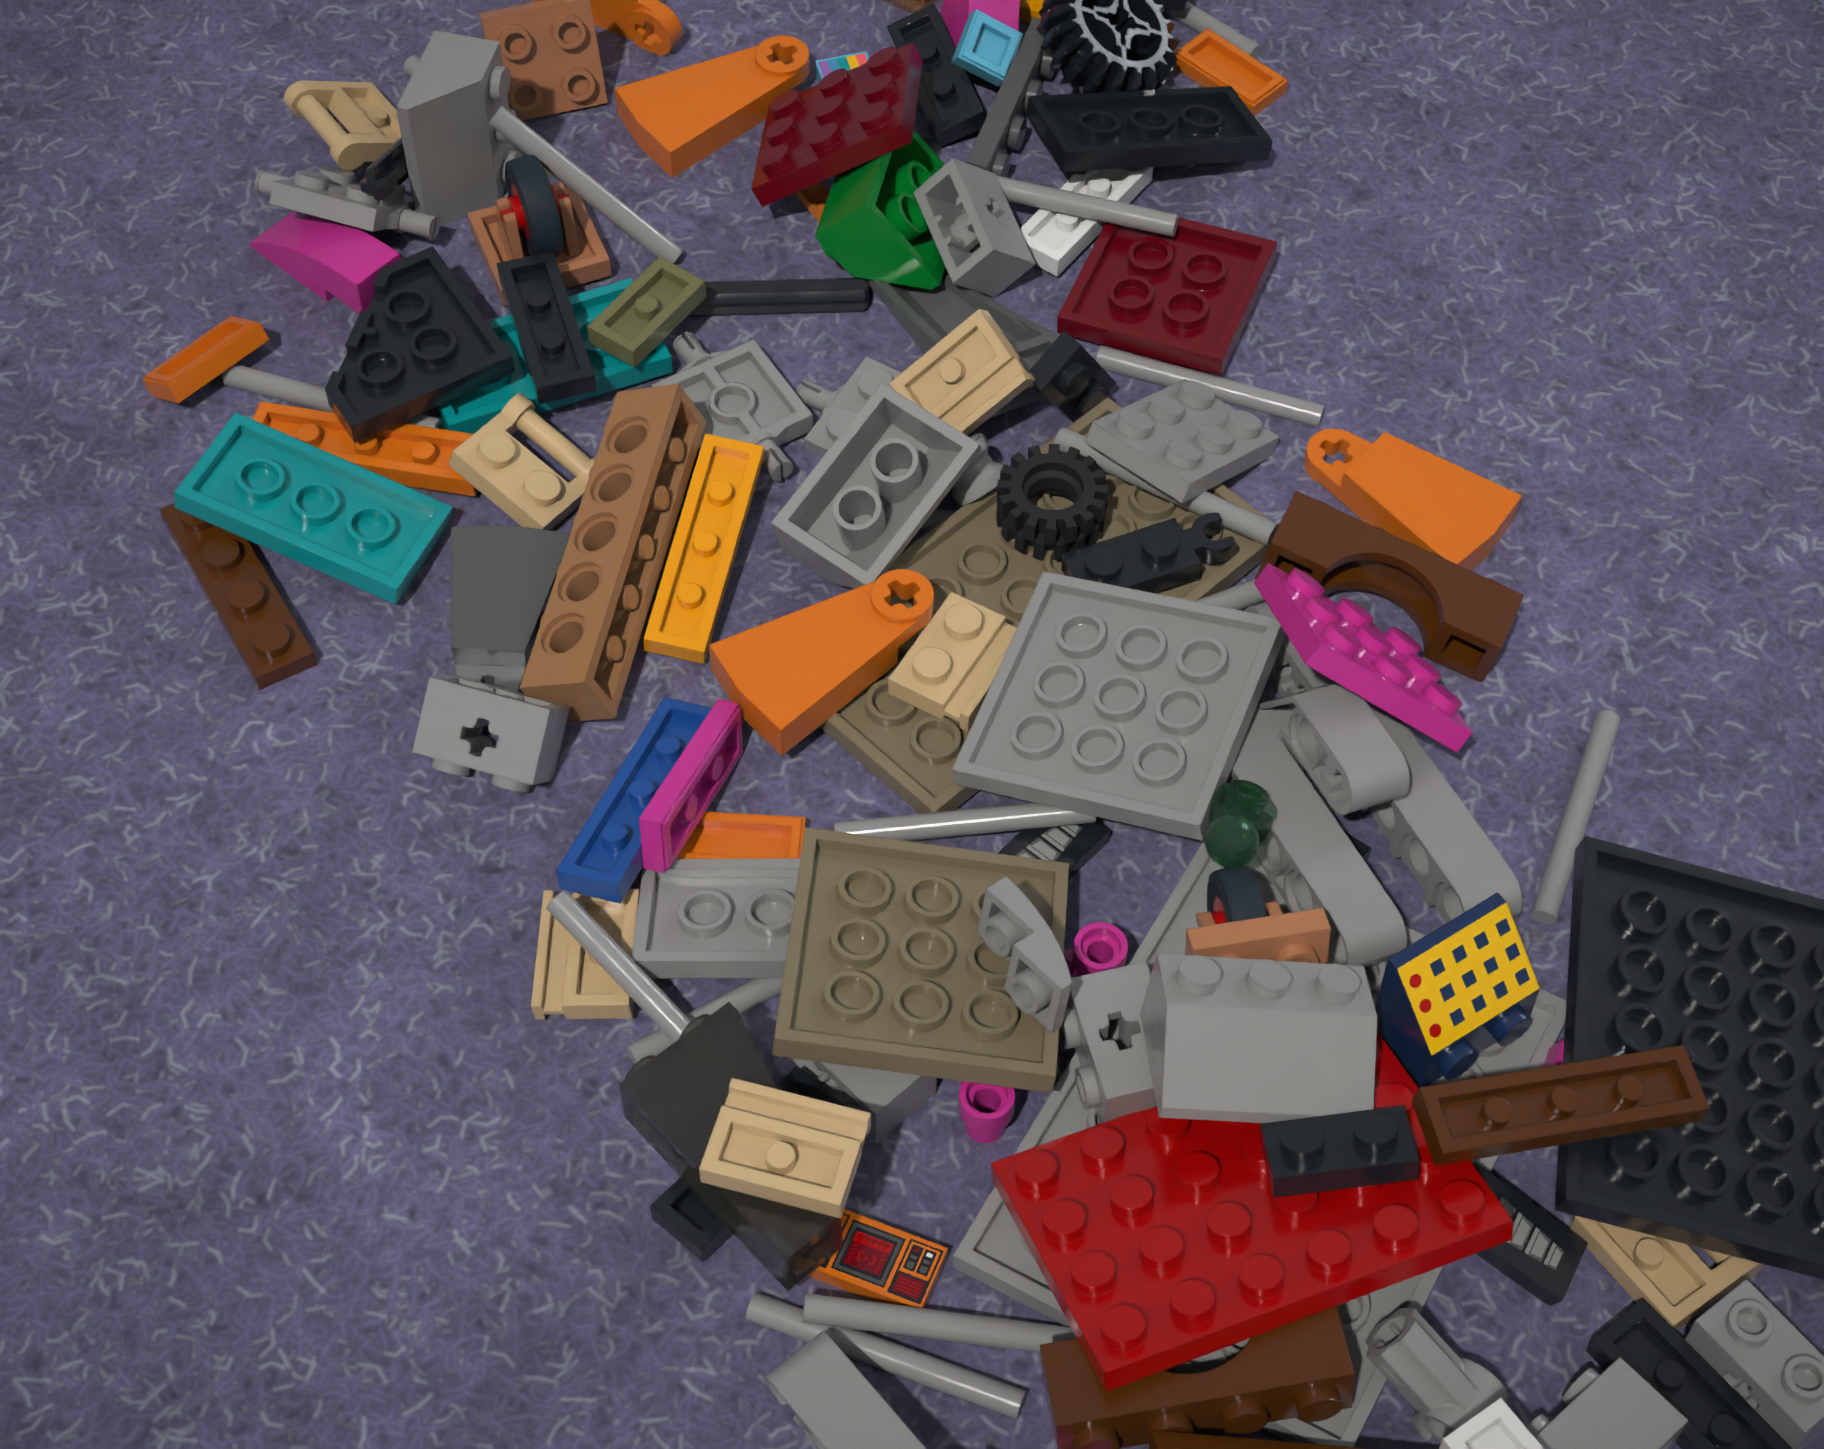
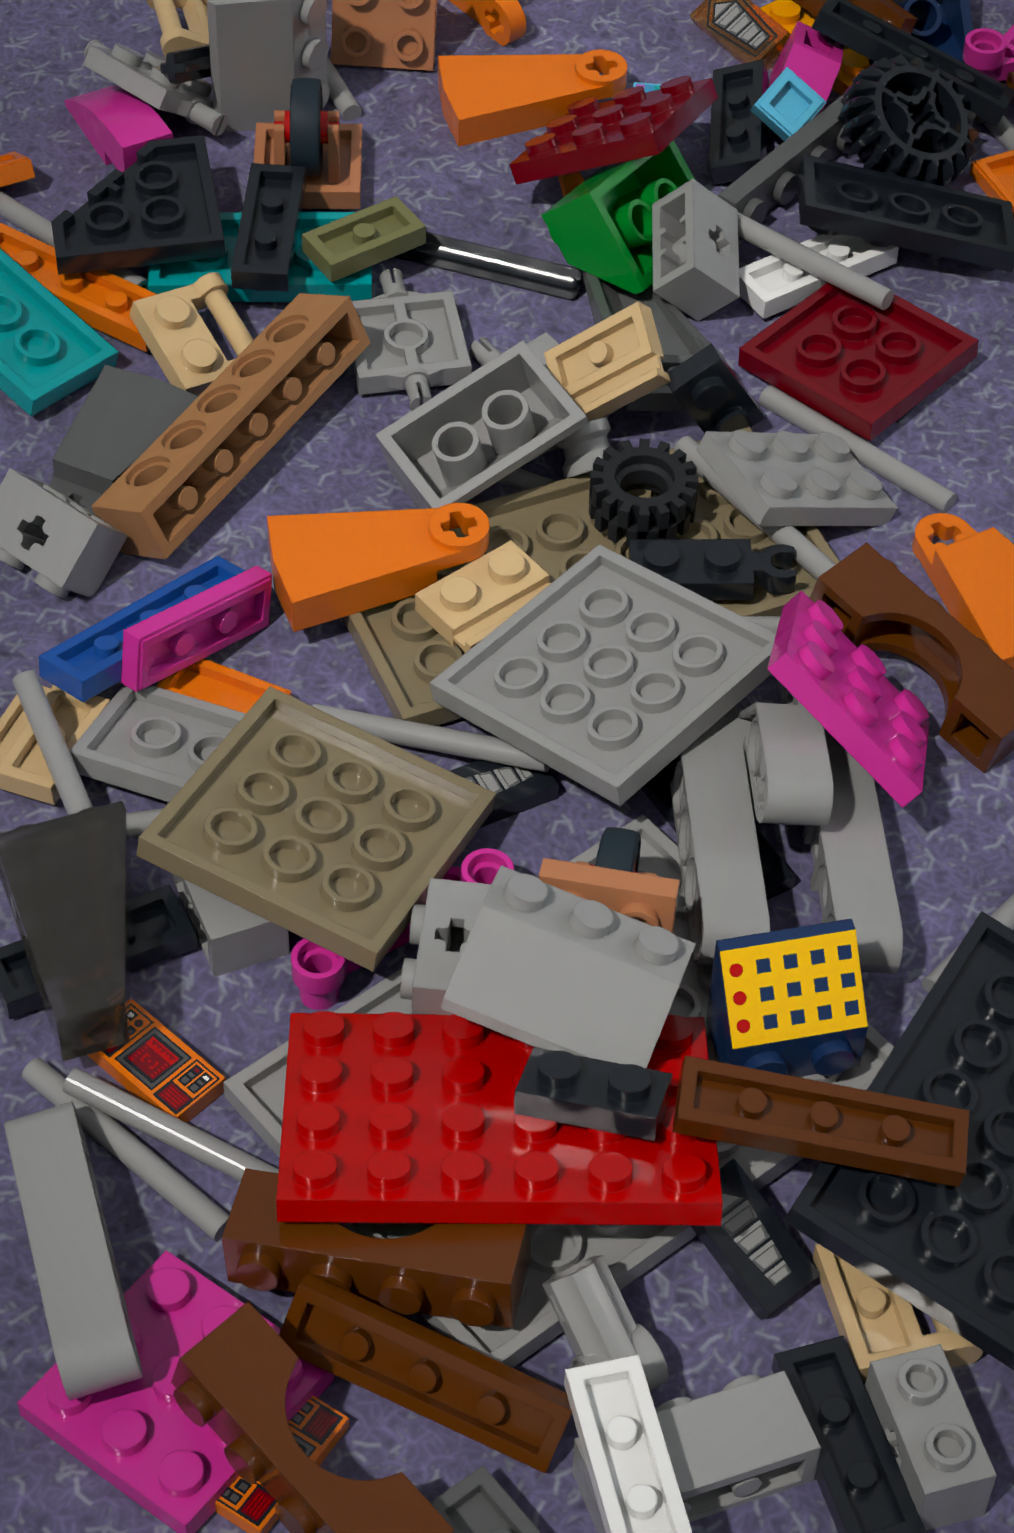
camera: 20 degrees right, 5 degrees down
(585, 185) = (361, 122): light grey piece -> none
(704, 549) = (317, 443): light orange plate -> none
(785, 1148) = (99, 926): tan plate -> none
(1037, 968) = (401, 835): light grey slope -> none
(1238, 822) = (660, 793): clear green plate -> none

